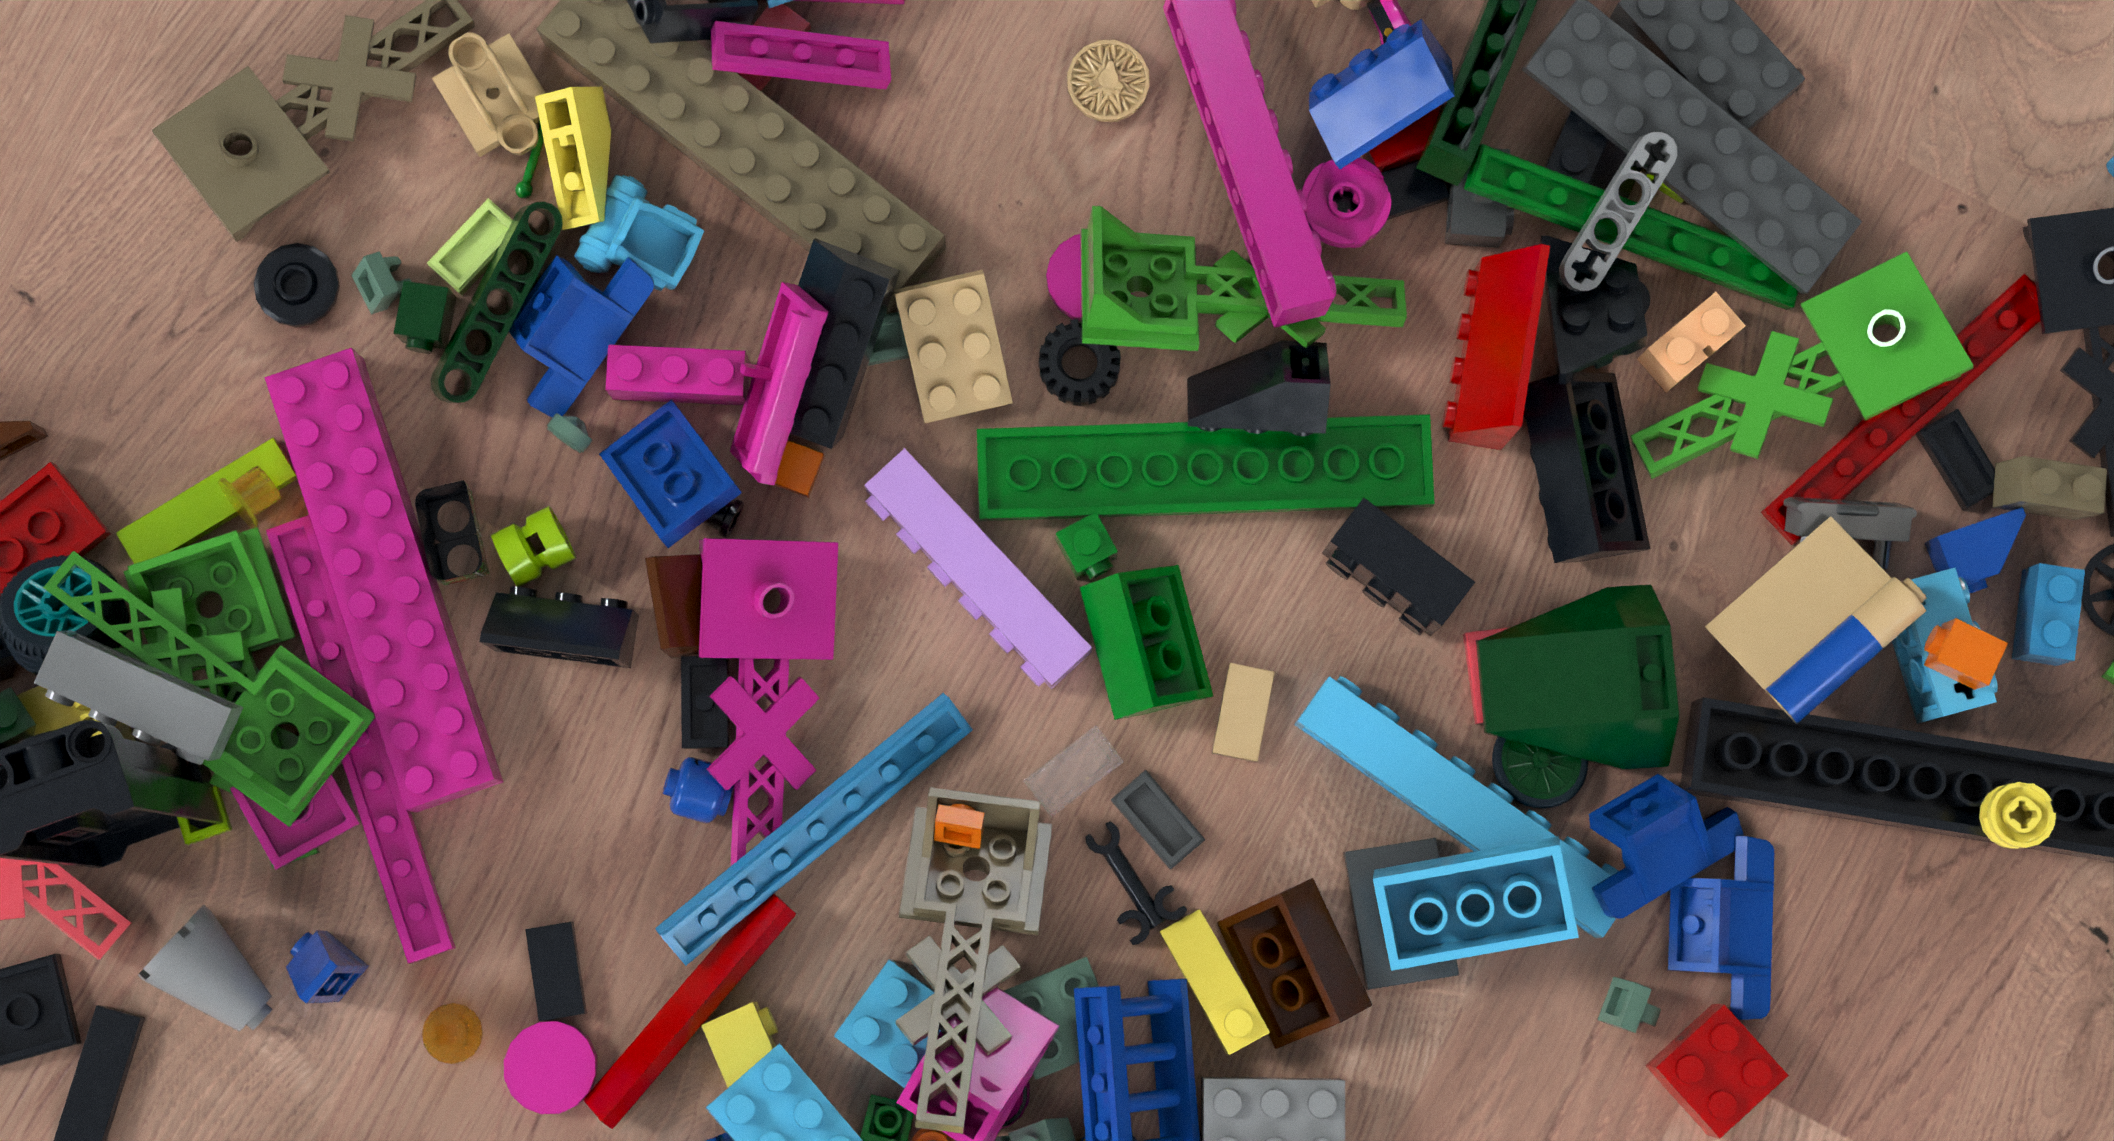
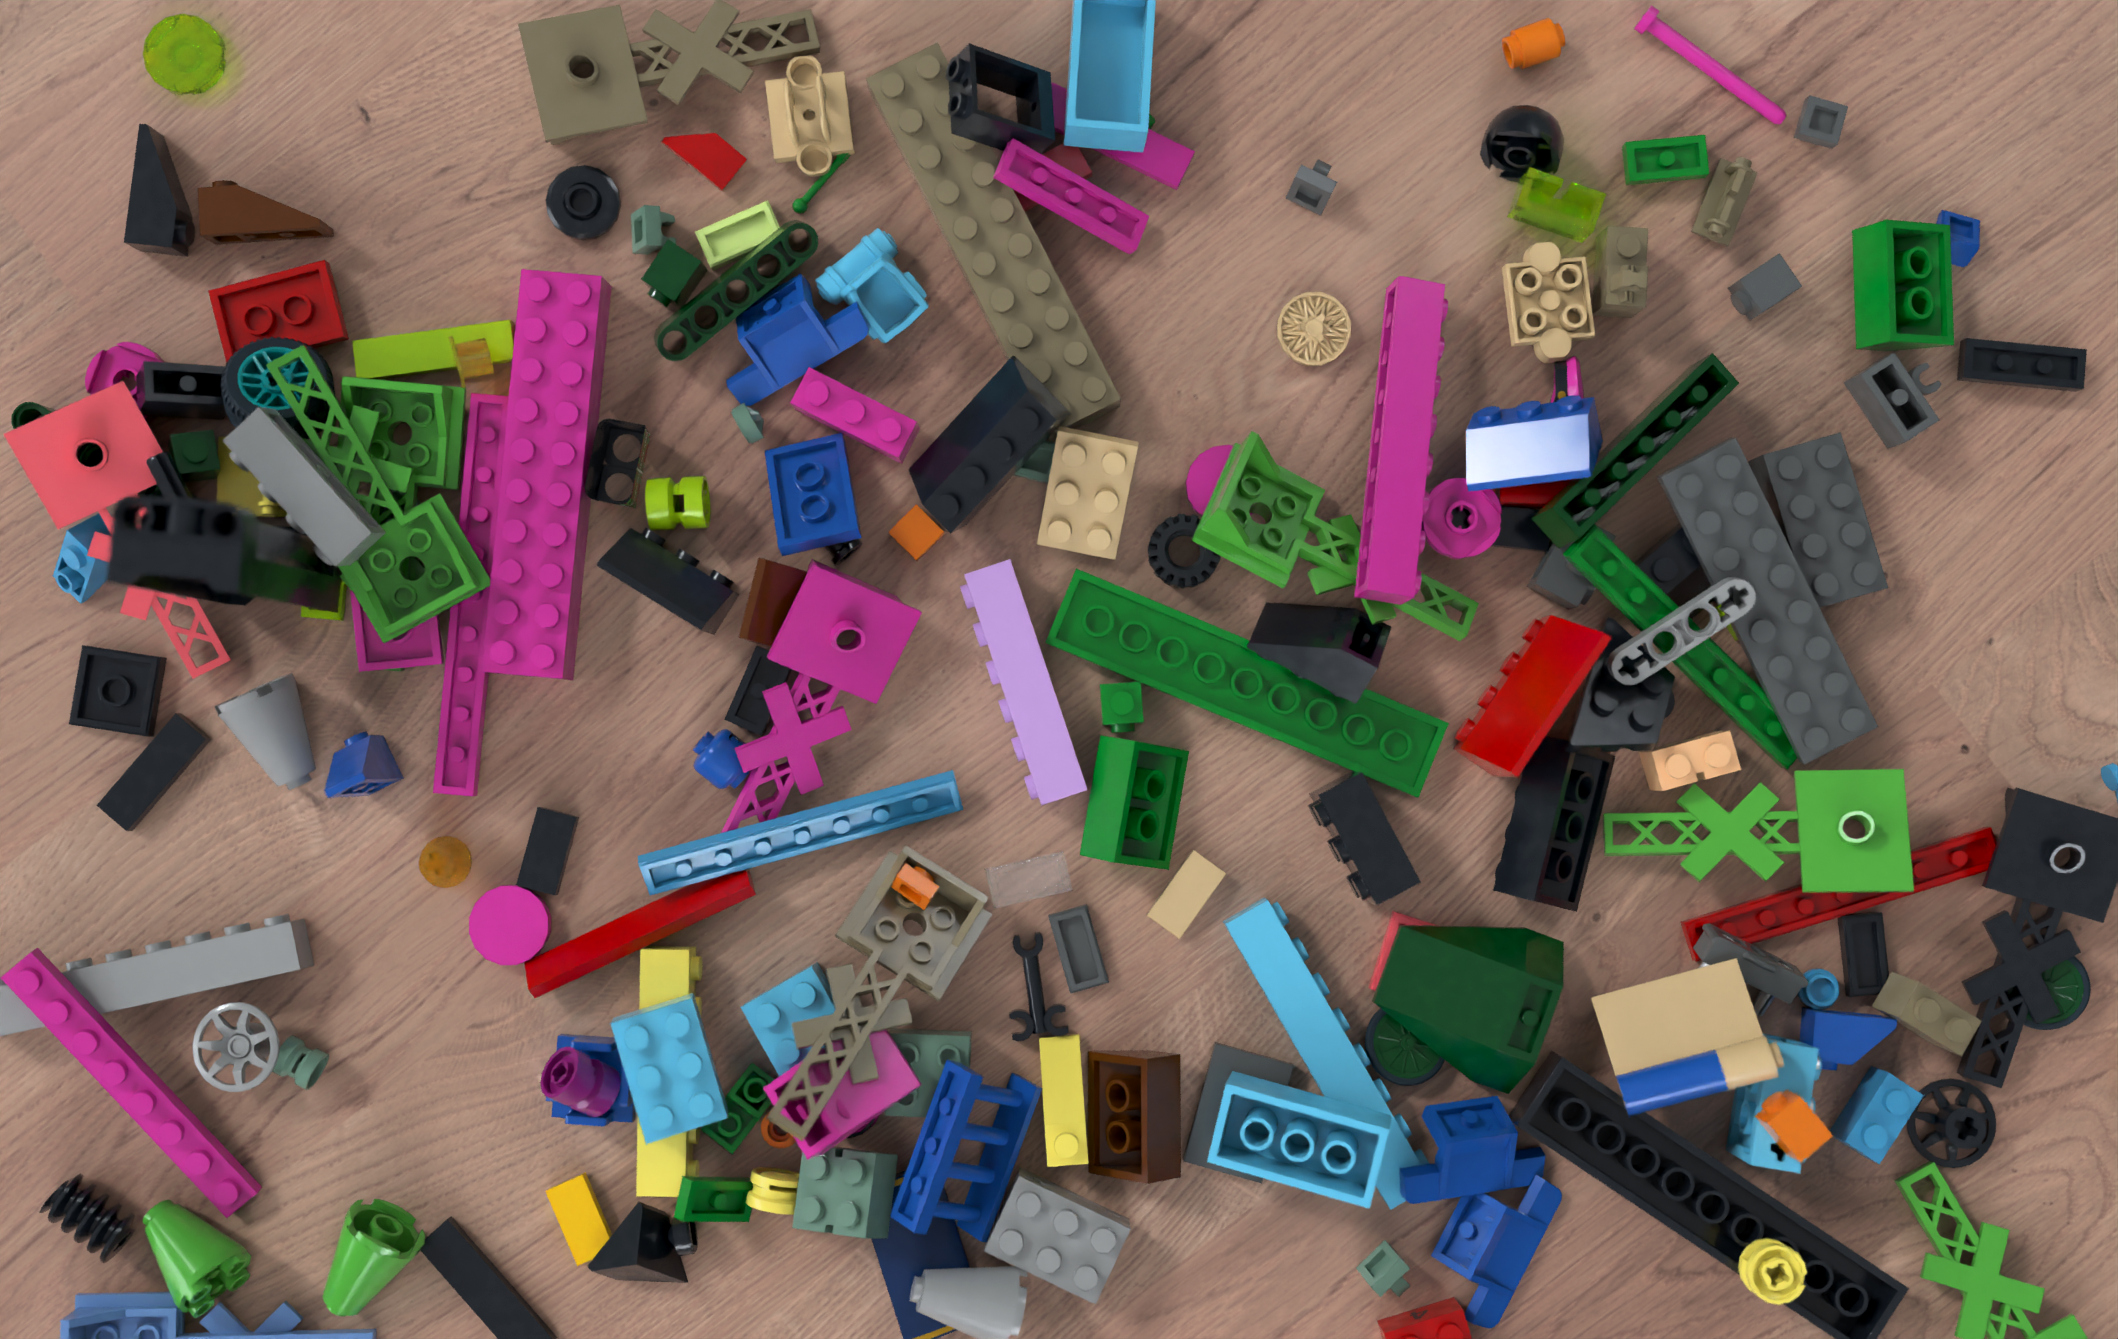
camera: 30 degrees right, 5 degrees up
(405, 179) = (707, 155): none -> red slope
(577, 151) = (856, 193): light yellow slope -> none
(777, 382) = (930, 460): dark pink container -> none
(1933, 516) = (1821, 989): none -> dark azure plate

